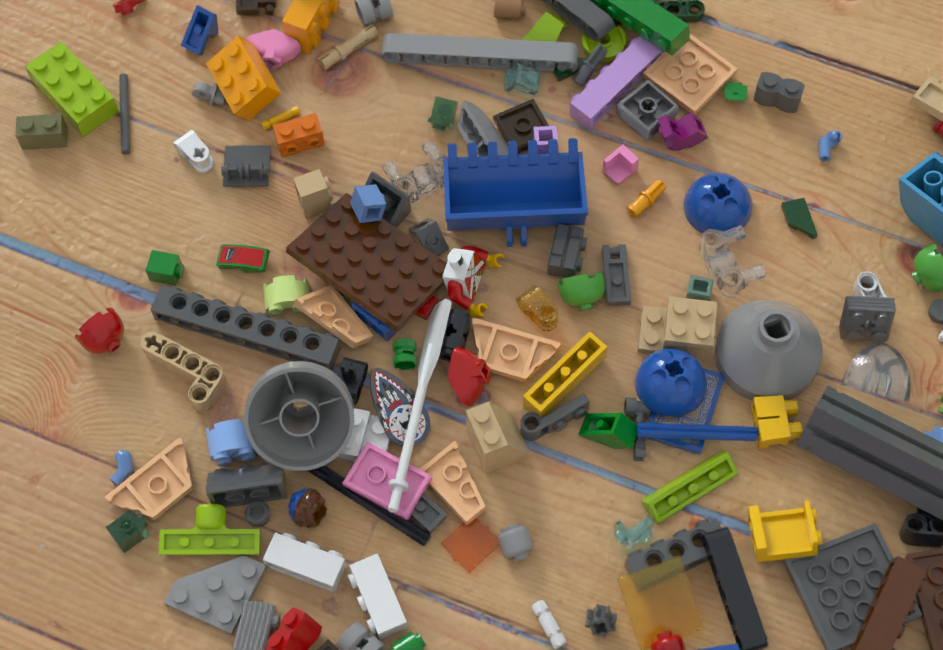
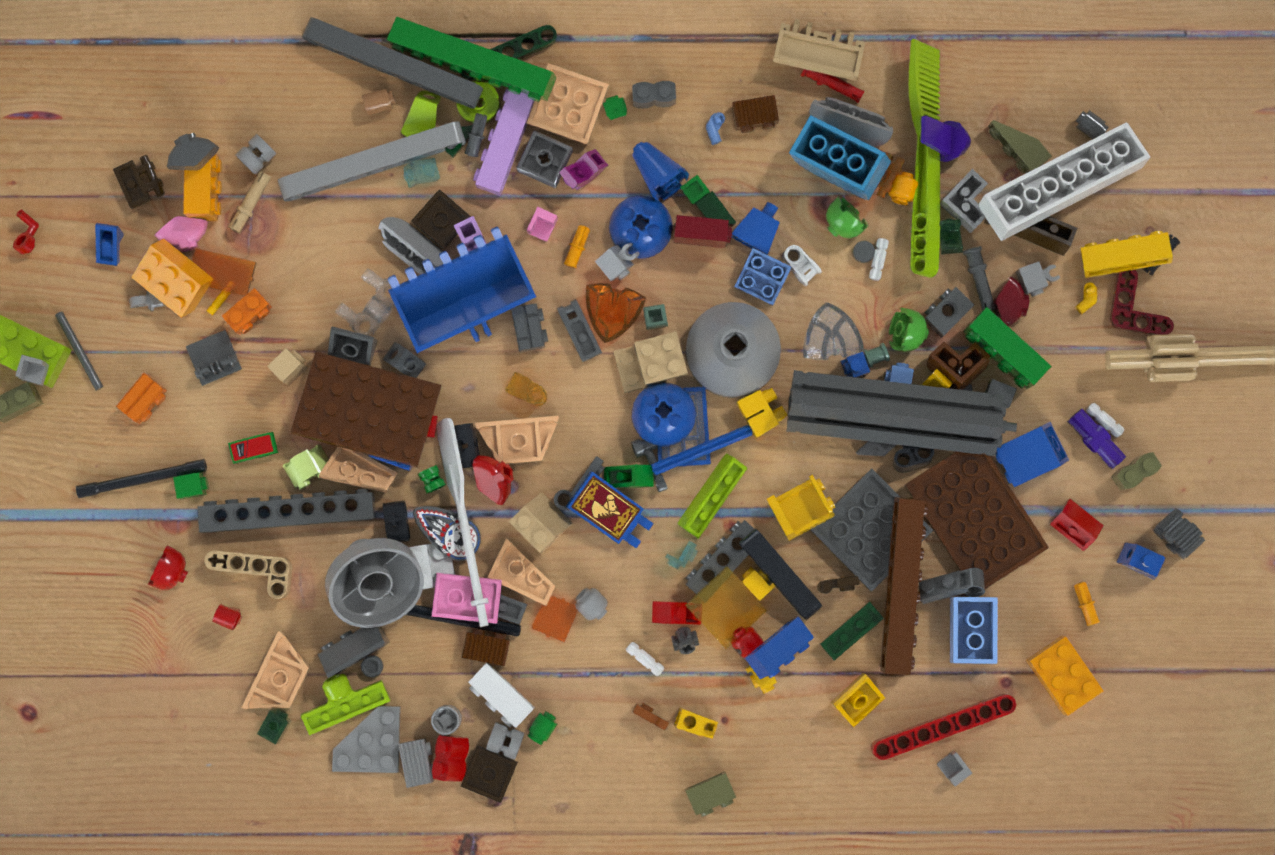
camera: 25 degrees left, 20 degrees up
(71, 99) = (32, 370): none -> light grey panel
(74, 236) = (95, 488): none -> black piece
(125, 467) = (244, 672): medium blue arm -> none
(136, 399) = (227, 617): none -> red piece
(160, 173) = (142, 398): none -> orange brick
(194, 151) = (159, 363): white piece -> none
(229, 443) = (321, 621): light blue brick -> none
(296, 96) = (228, 272): none -> clear orange piece
(305, 561) = (430, 691): white brick -> none
(307, 508) = (411, 647): reddish brown piece -> none
(308, 595) = (446, 719): none -> light grey wheel
(368, 203) = (341, 359): medium blue brick -> none
(380, 538) = (486, 648): none -> reddish brown brick
(443, 113) = (365, 237): clear green bracket -> none
(464, 274) = (451, 387): torso -> none
(565, 375) = (574, 446): yellow brick -> none
(574, 452) = (608, 509): none -> tile
(582, 290) = (557, 360): bright green cylinder -> none
(600, 586) = (672, 613): none -> red slope
(658, 267) = (612, 309): none -> clear orange brick
(680, 222) = (616, 262): none -> light grey brick
(705, 593) = (756, 583): none -> yellow brick
(722, 262) = (664, 283): clear piece -> none
(758, 160) = (659, 171): none -> blue cone
(779, 225) = (702, 231): none -> dark red brick
(786, 190) = (694, 189): none -> green plate
(799, 626) = (843, 584): none -> dark brown plate
(825, 292) = (762, 276): none -> medium blue slope
(836, 248) = (758, 228): none -> blue torso
(867, 318) = (805, 291): flat silver brick -> none
(874, 144) = (755, 113): none -> reddish brown brick
(889, 506) = (875, 449): none -> flat silver tile
(896, 408) = (855, 365): none -> blue brick
(920, 413) = (876, 355): none -> sand green bush

